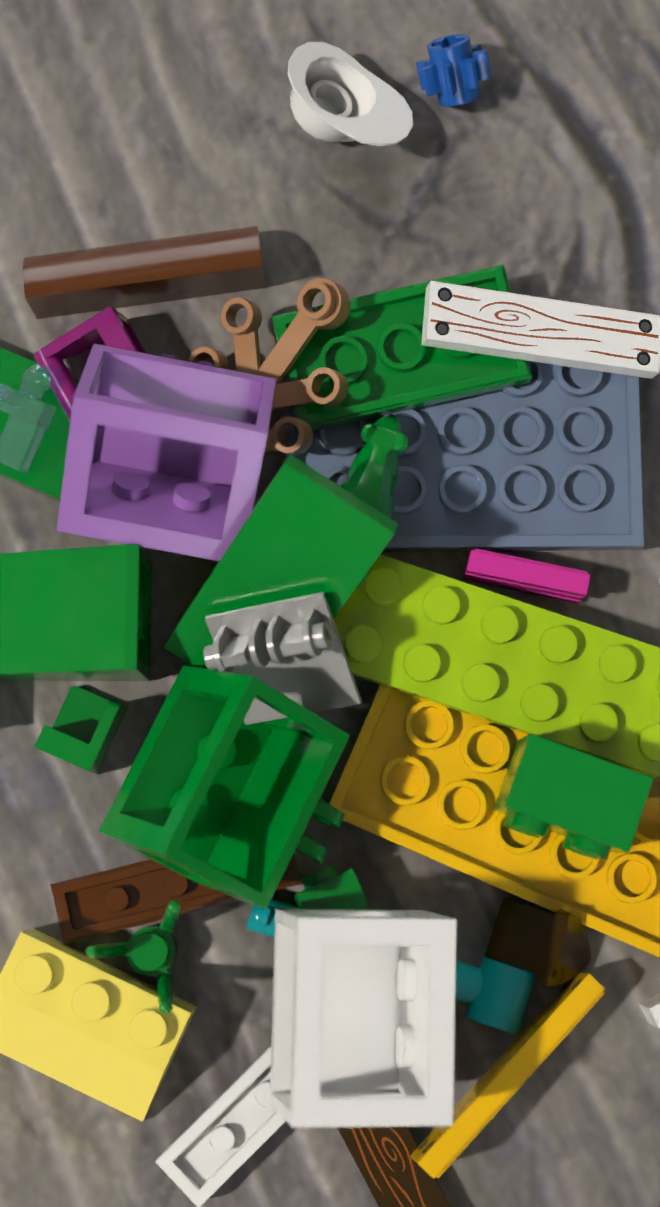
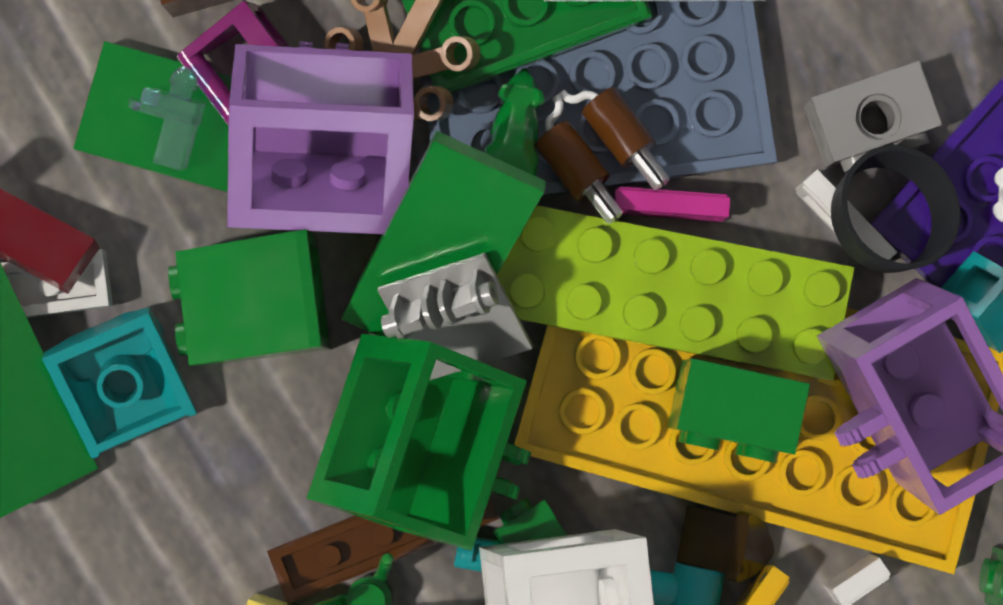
camera: 10 degrees left, 5 degrees up
(83, 729) = (275, 404): green panel -> none
(435, 520) = (619, 131): none -> reddish brown piece

